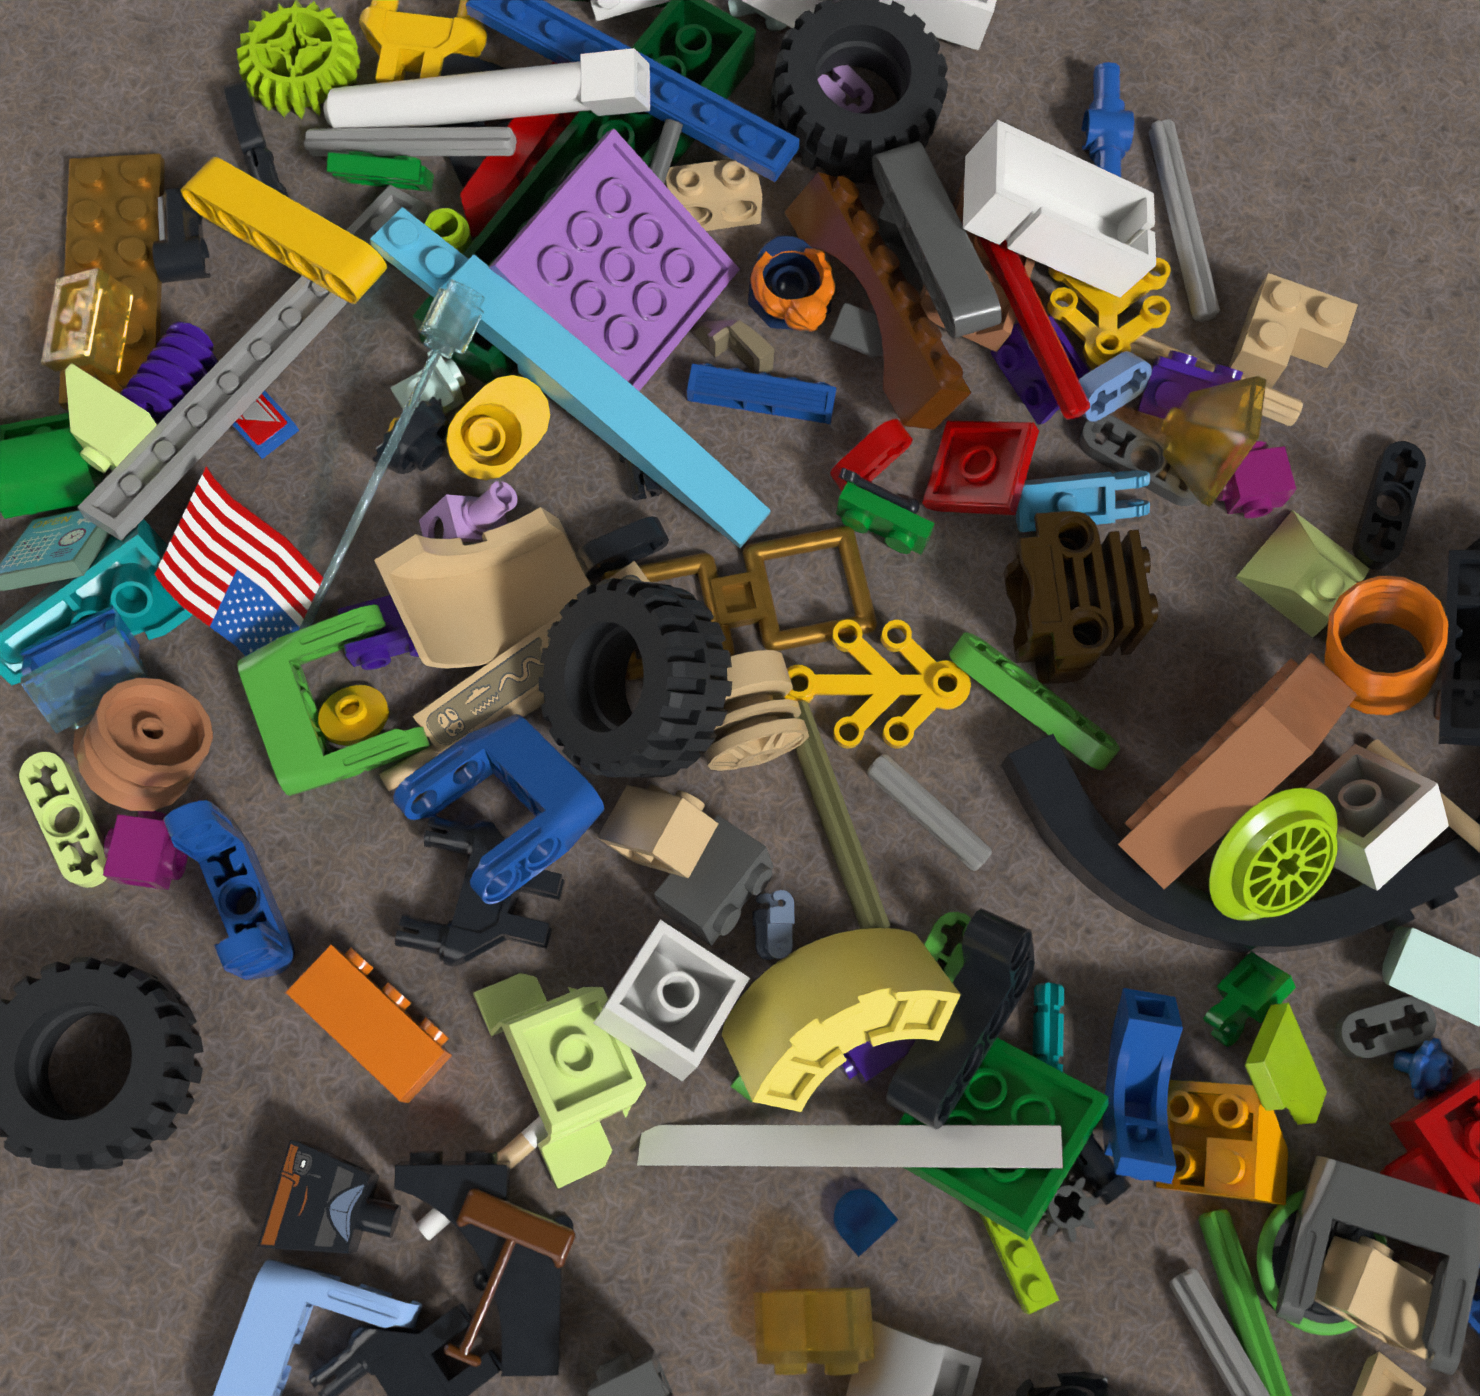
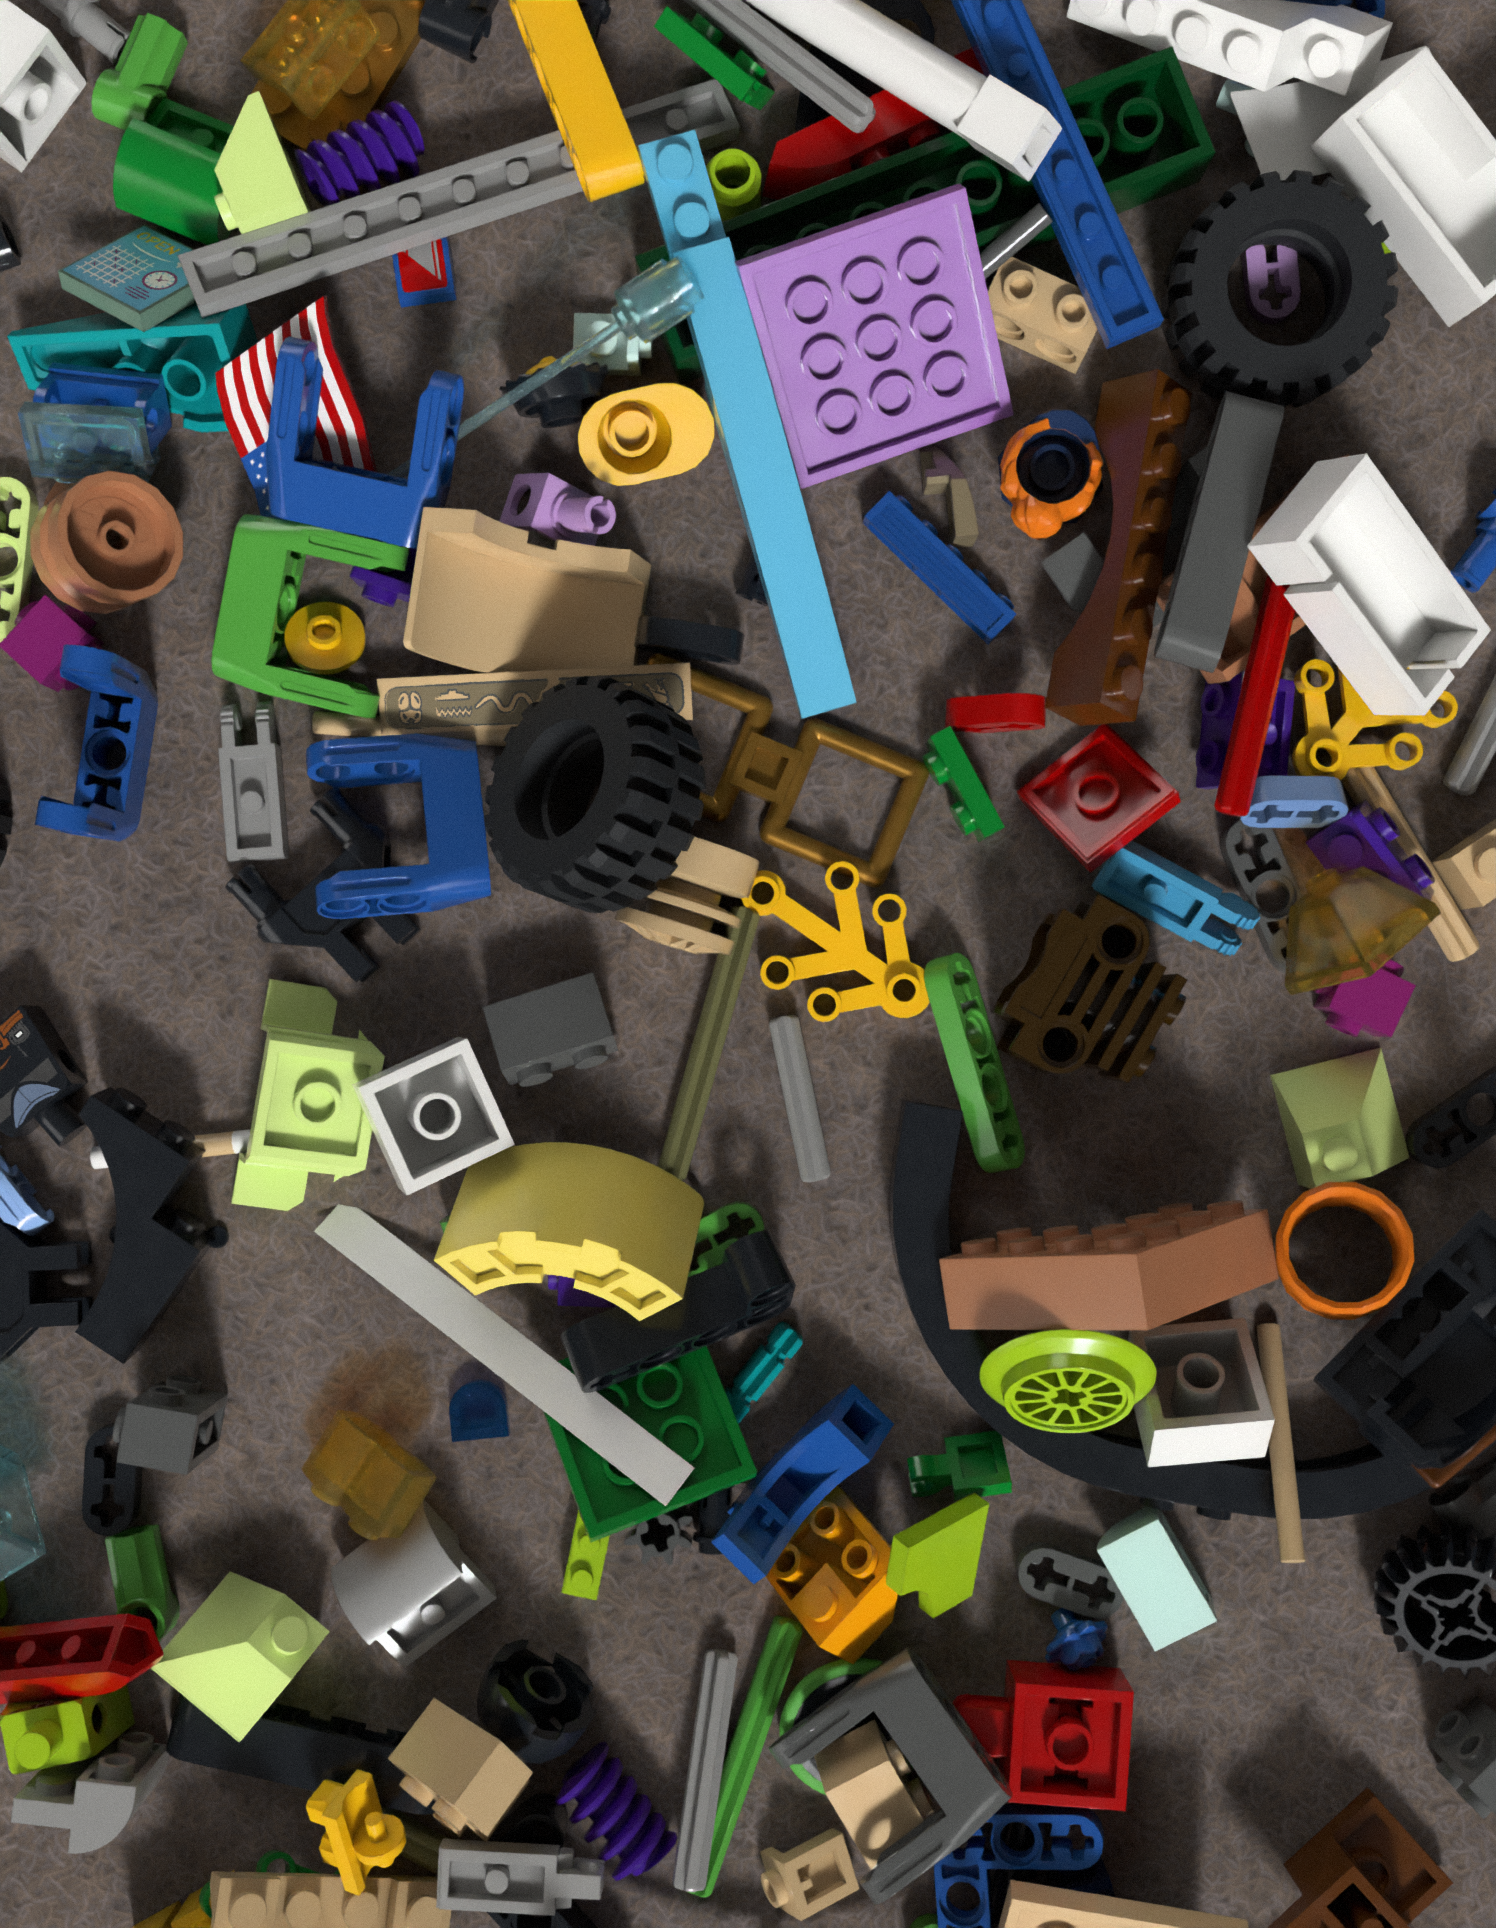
camera: 40 degrees right, 15 degrees up
(314, 594) = (344, 495): none -> blue connector
(369, 861) = (252, 788): none -> light grey hinge
(371, 1022) = (159, 944): orange brick -> none
(518, 1227) = (162, 1219): reddish brown piece -> none
(659, 829) = (527, 949): tan brick -> none
(774, 925) = (578, 1106): sand blue piece -> none
(909, 503) = (1002, 785): black hinge -> none

